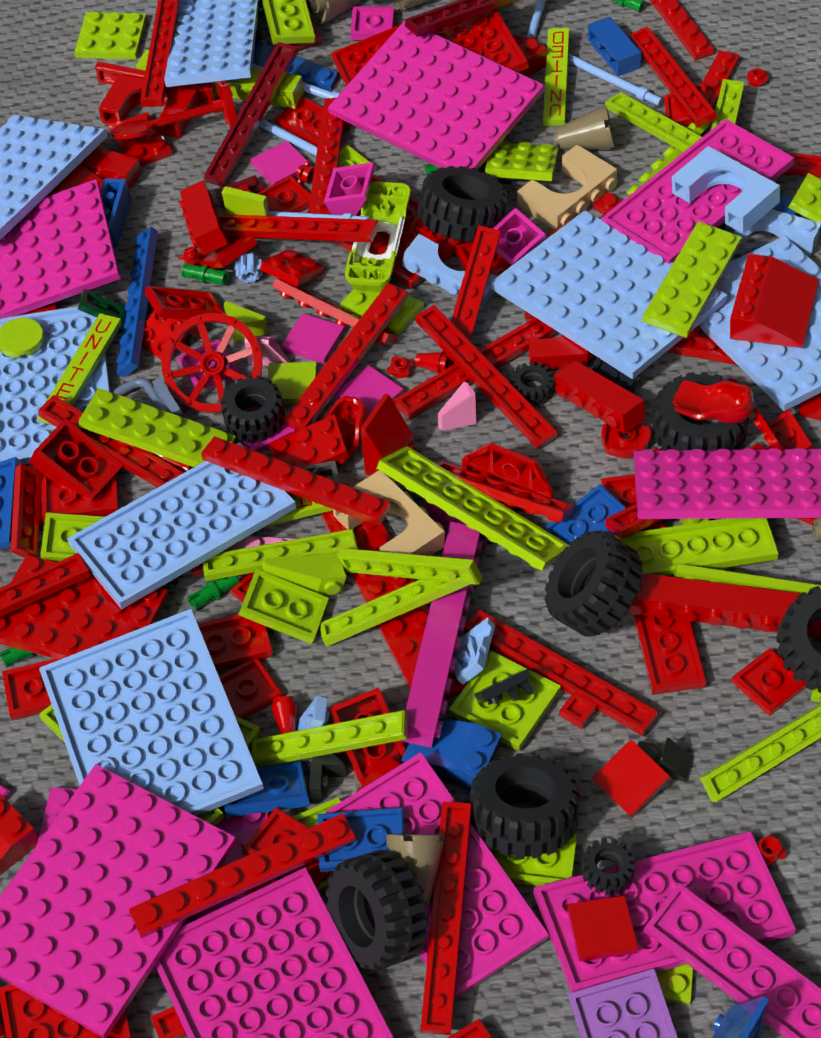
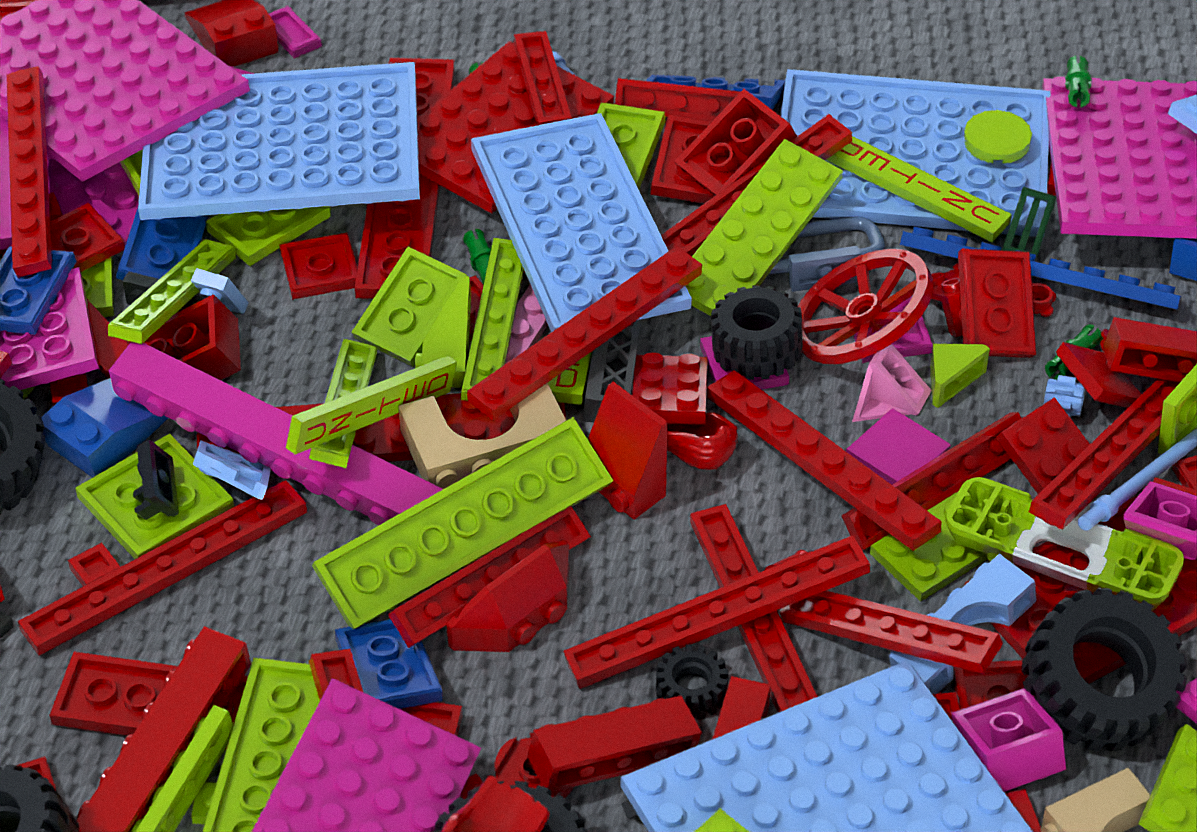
camera: 105 degrees right, 5 degrees down
(285, 713) = (259, 285): red cone -> none
(292, 378) = (822, 404): lime tile -> none
(370, 387) = (761, 490): dark pink tile -> none
(400, 367) = (796, 541): red plate -> none
(459, 409) = (676, 575): bright pink slope -> none
(593, 583) = (243, 598): black tyre -> none

